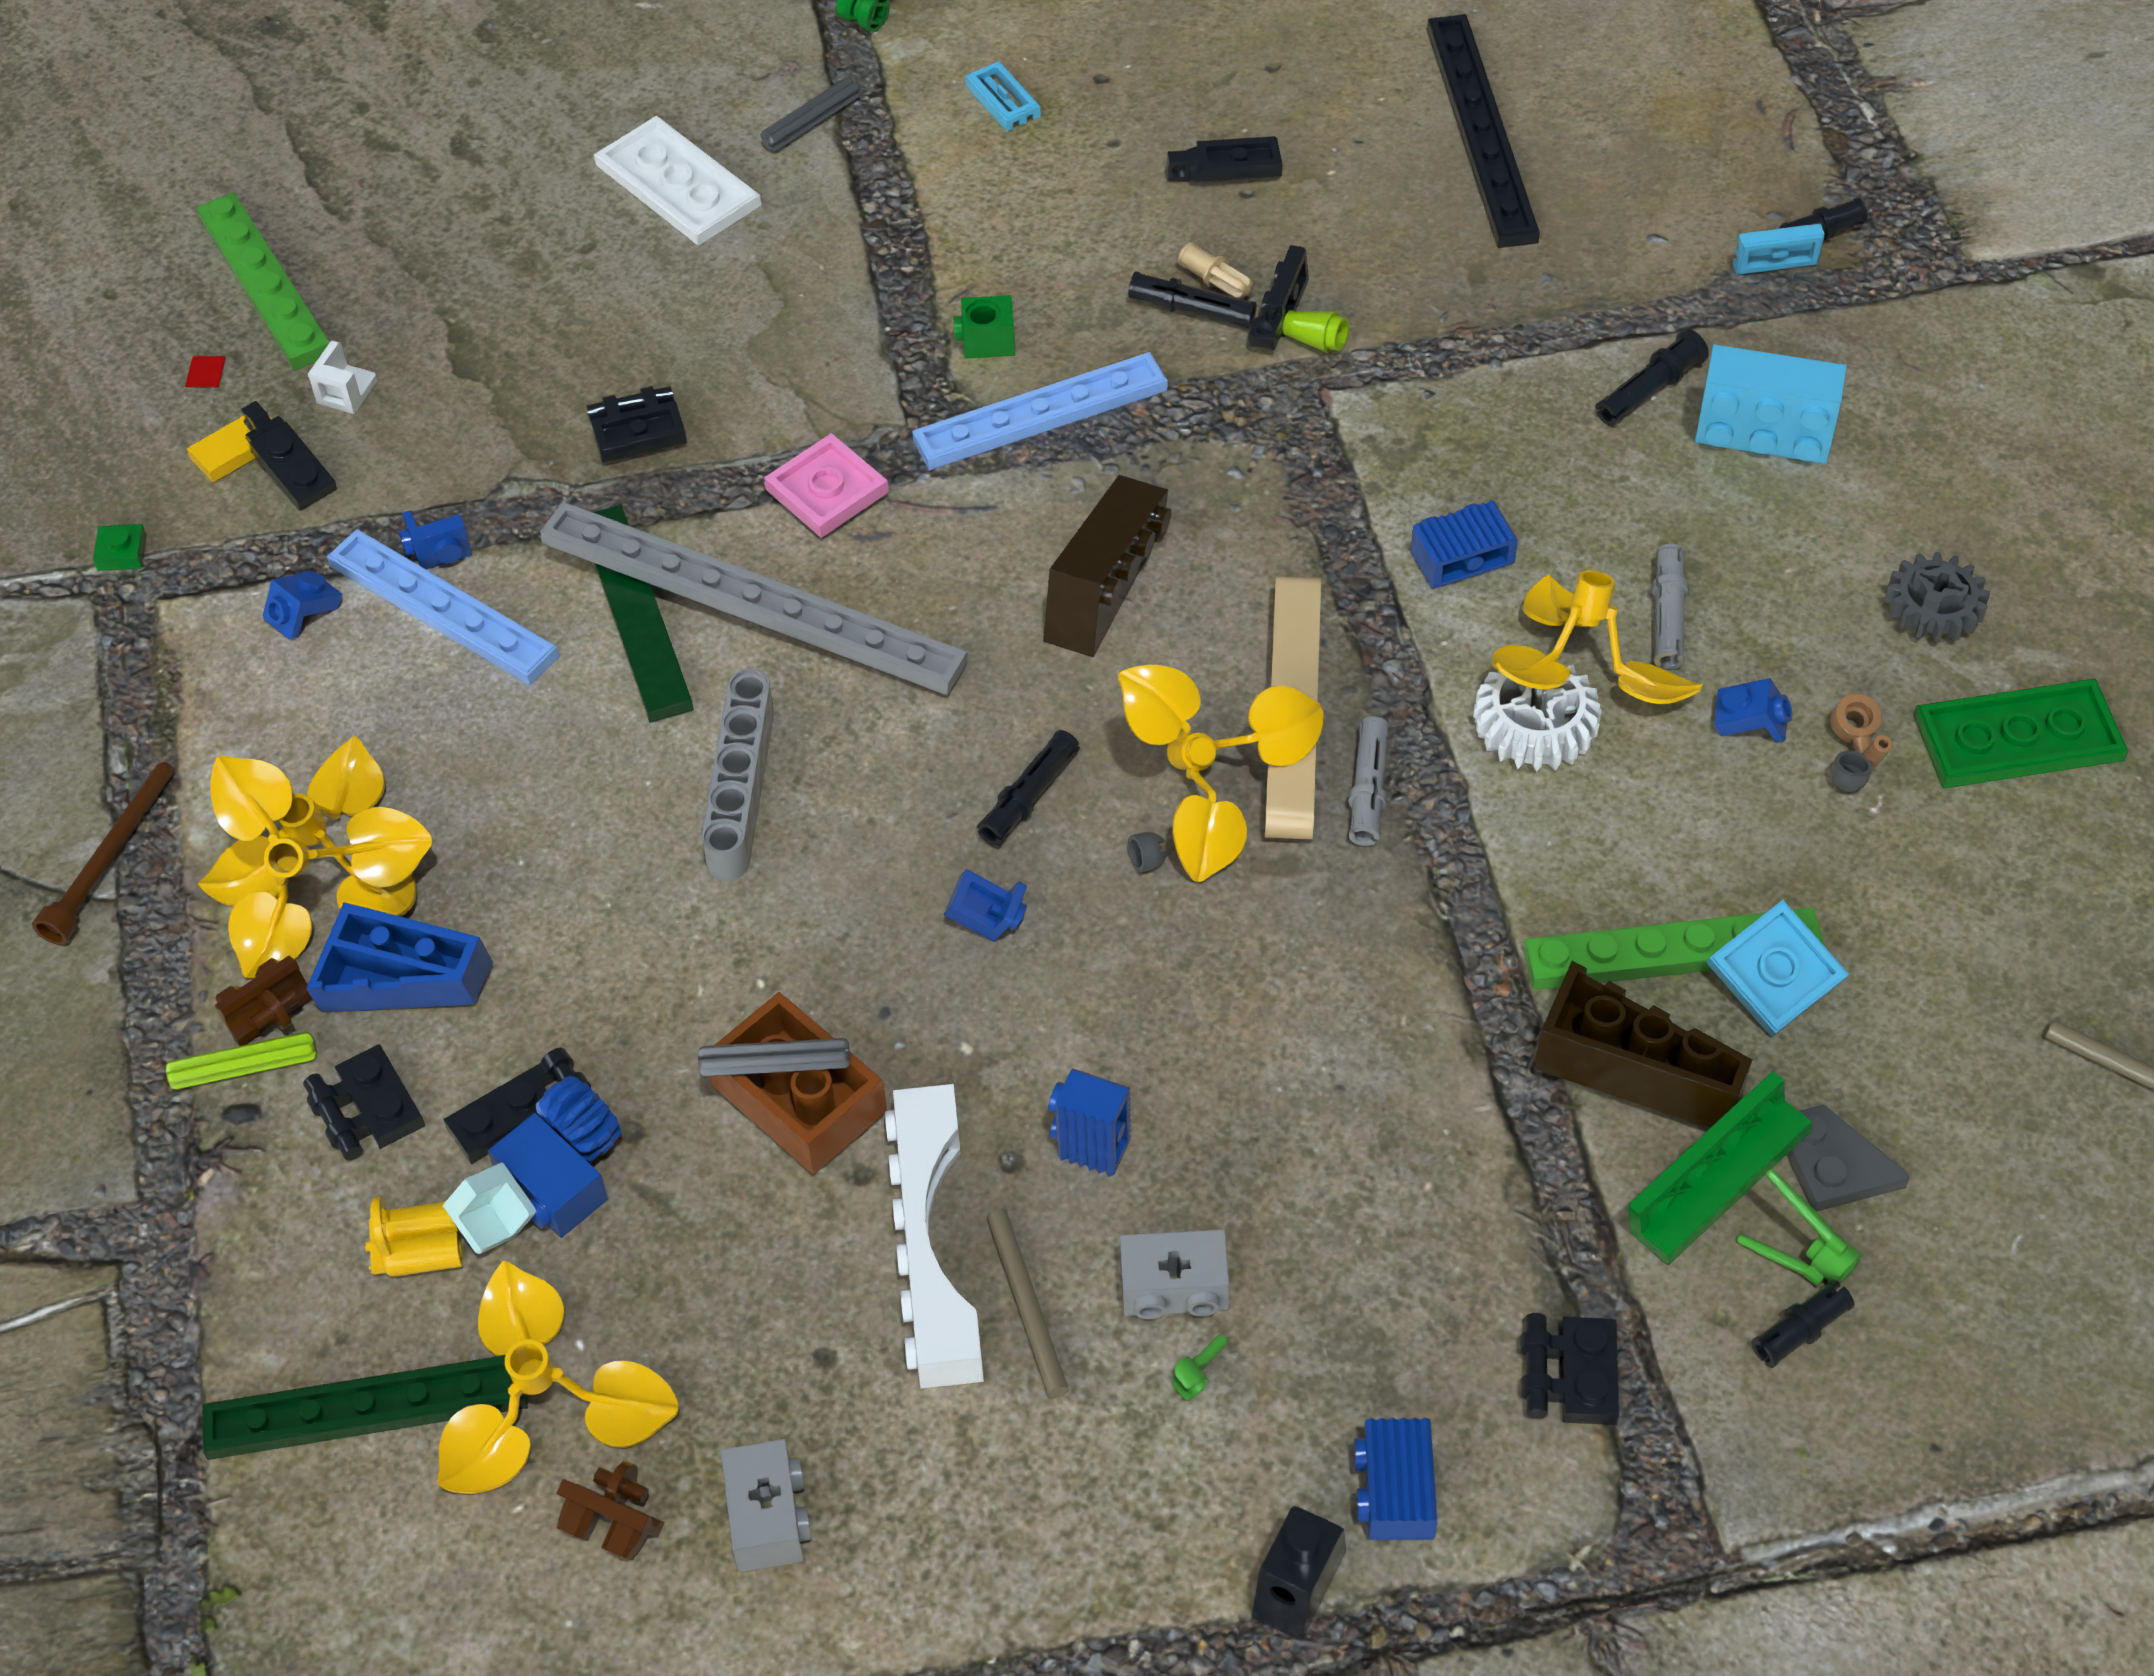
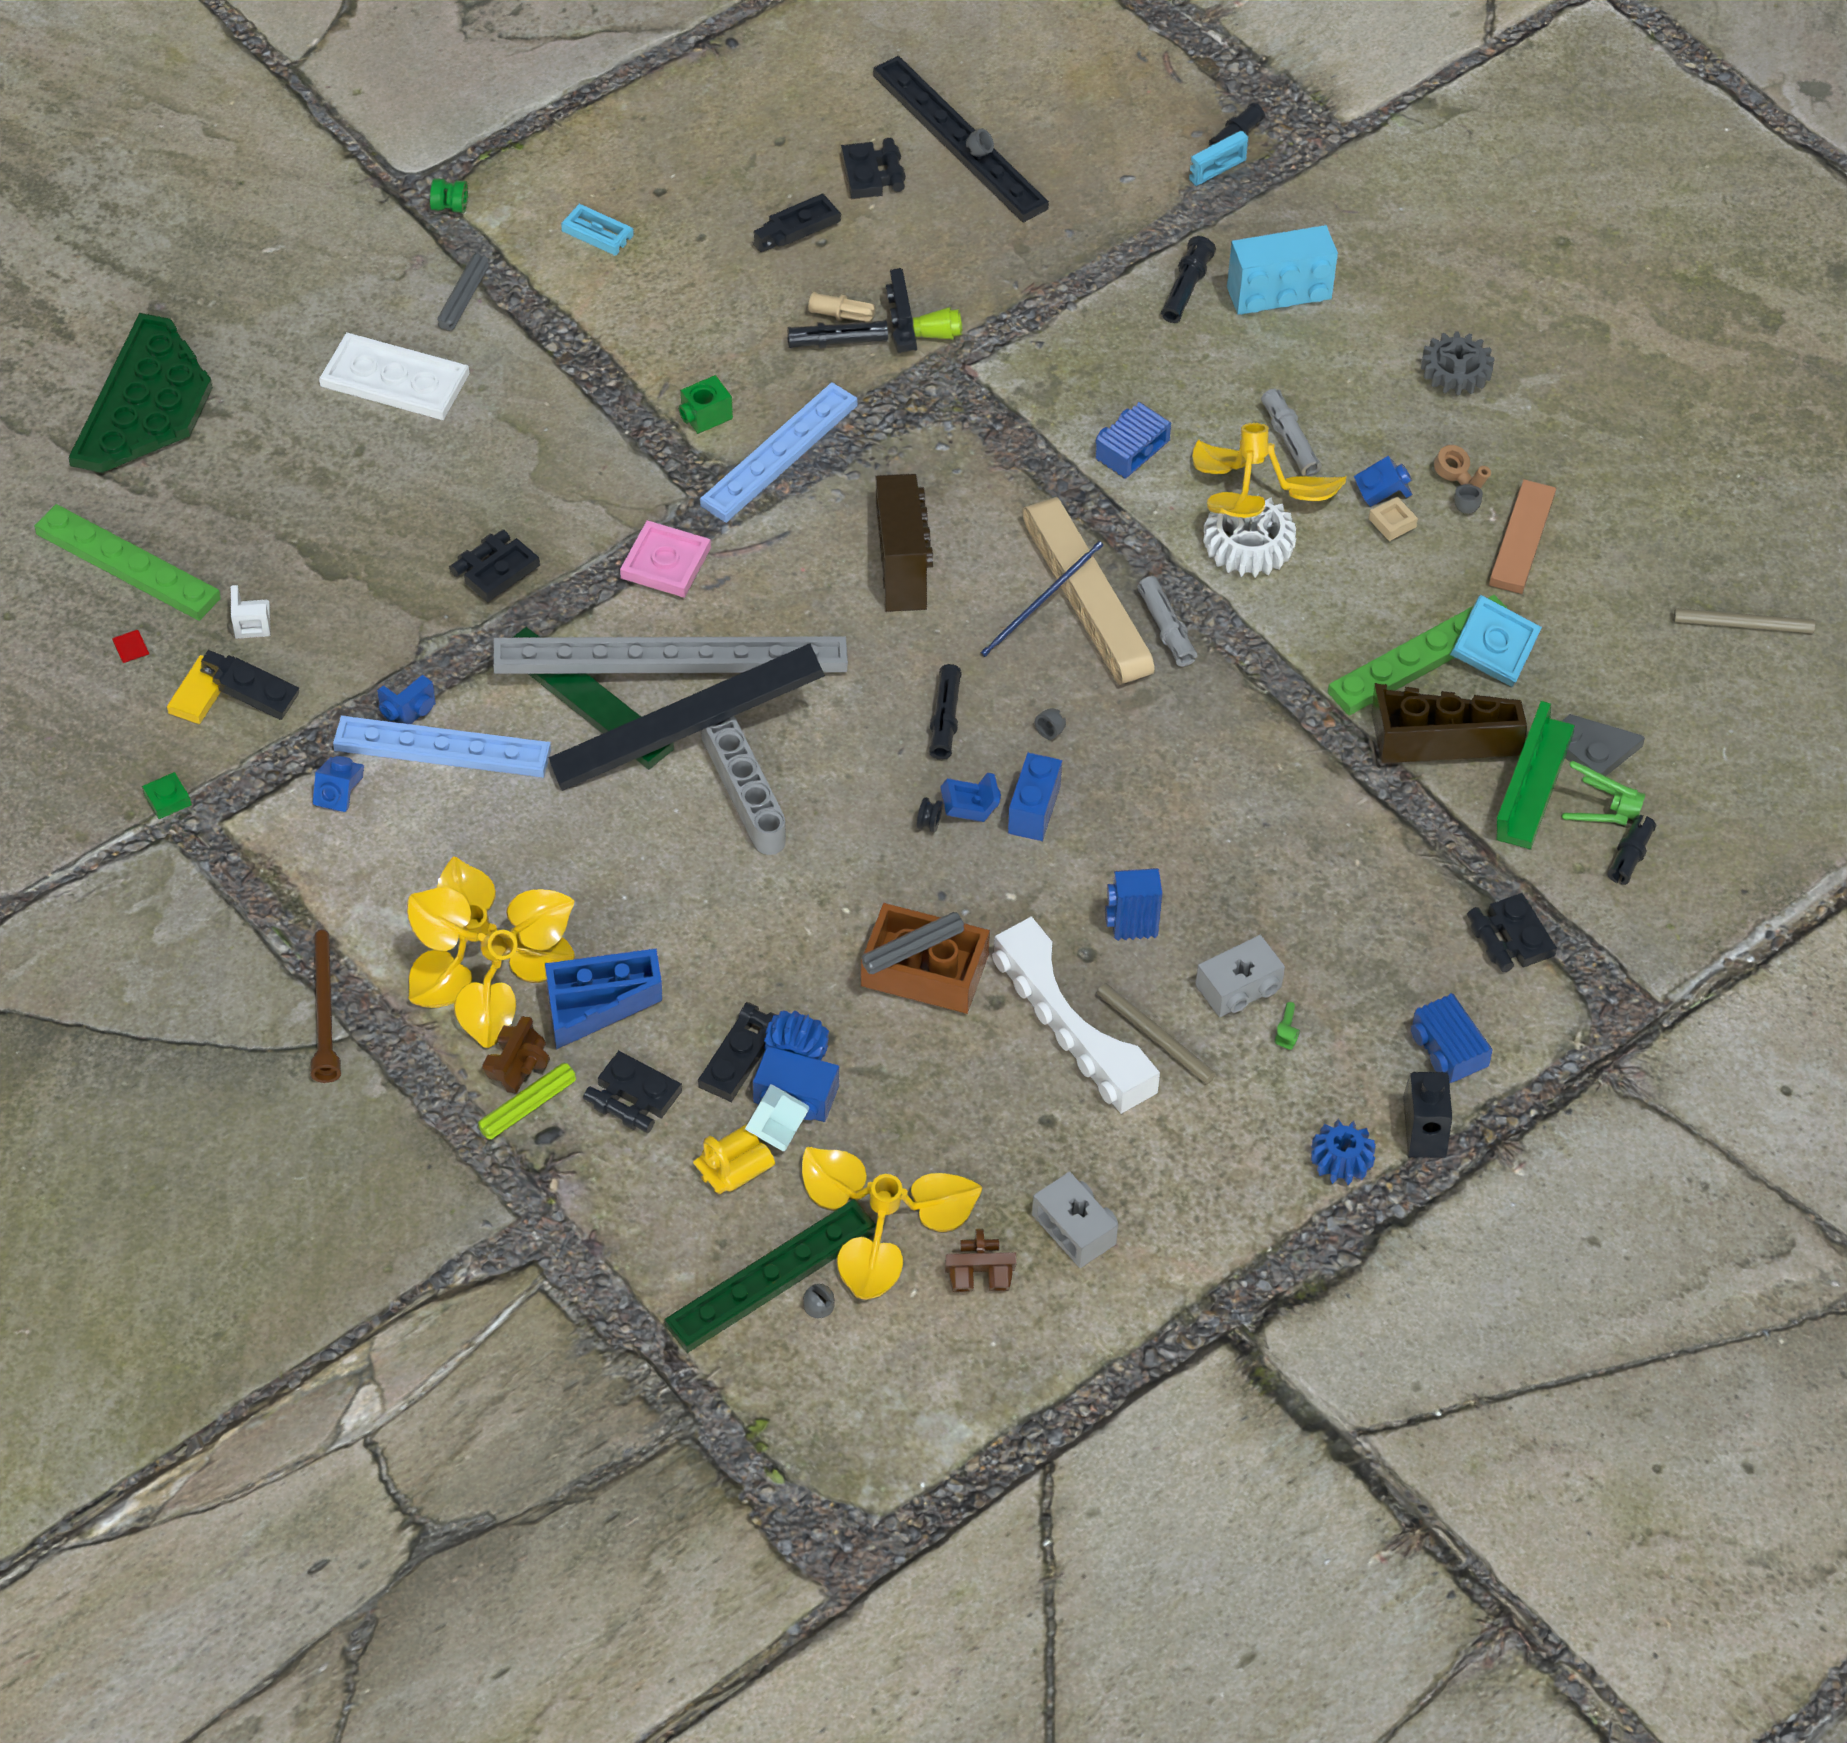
camera: 30 degrees left, 0 degrees up
(400, 116) = (146, 399): none -> dark green plate
(408, 1462) = (814, 1305): none -> dark grey hinge
(713, 674) = (686, 716): none -> black tile
(925, 906) = (929, 814): none -> black bush
(1063, 934) = (1035, 796): none -> blue brick
(1156, 709) = (1023, 619): yellow plant -> none
(1158, 1589) = (1343, 1152): none -> blue gear
(1255, 682) = (1041, 599): none -> dark blue piece
(1344, 126) = (862, 168): none -> black plate
(1502, 137) = (980, 142): none -> dark grey hinge
(1736, 761) = (1393, 518): none -> tan plate
(1898, 847) = (1522, 536): none -> nougat tile
(2020, 733) = (1555, 434): green tile -> none

